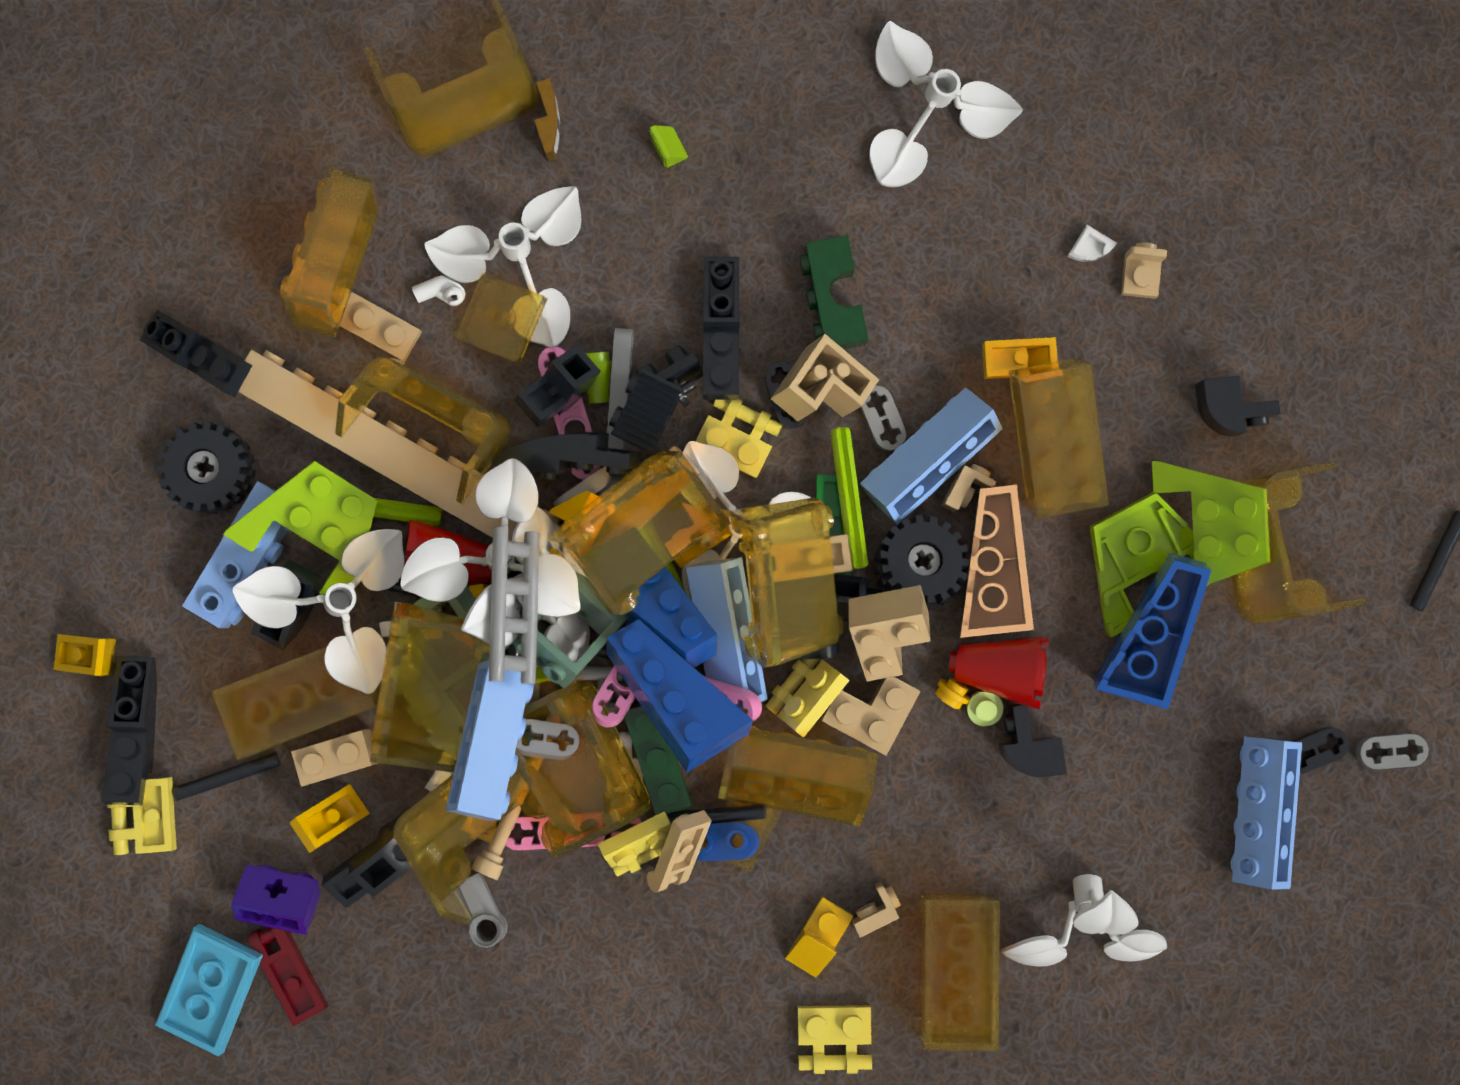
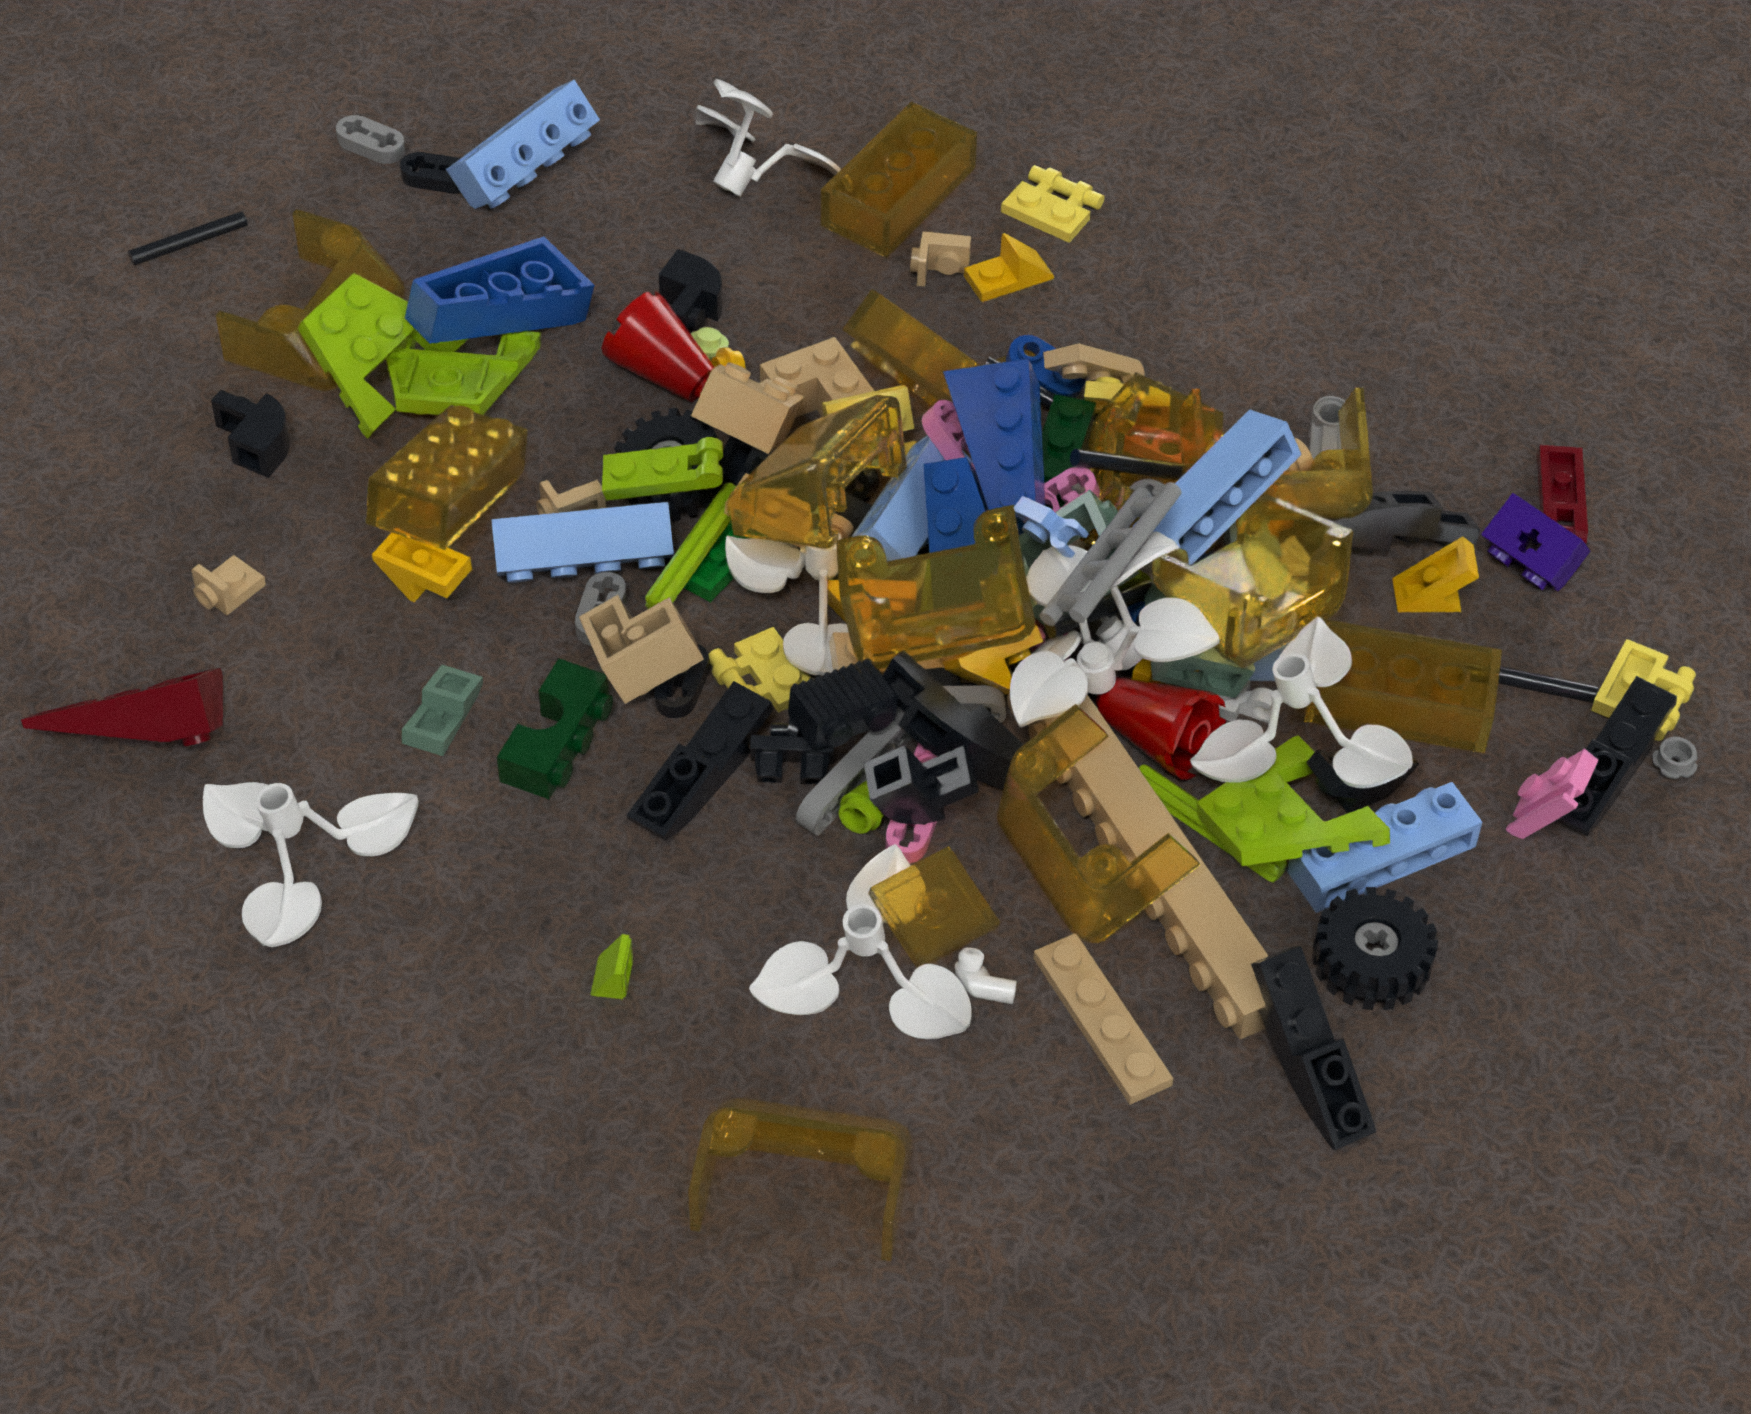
camera: 145 degrees left, 35 degrees down
(84, 655) = (1621, 839): yellow slope -> none
(84, 770) = (1678, 749): none -> light grey plate
(147, 661) = (1551, 793): none -> bright pink plate
(208, 989) = (1654, 518): medium azure tile -> none
(330, 252) = (1082, 1040): clear yellow brick -> none
(333, 757) = (1397, 611): tan brick -> none
(549, 125) = (729, 1060): pearl gold slope -> none
(588, 623) = (1045, 524): none -> light blue plate
(589, 755) = (1126, 464): none -> black bar
(913, 536) = (663, 470): none -> lime plate
(922, 269) = (443, 709): none -> sand green slope
(999, 588) = (595, 418): light nougat wedge -> none
(1091, 245) = (255, 637): white tile -> none
(1097, 137) = (164, 712): none -> dark red wedge

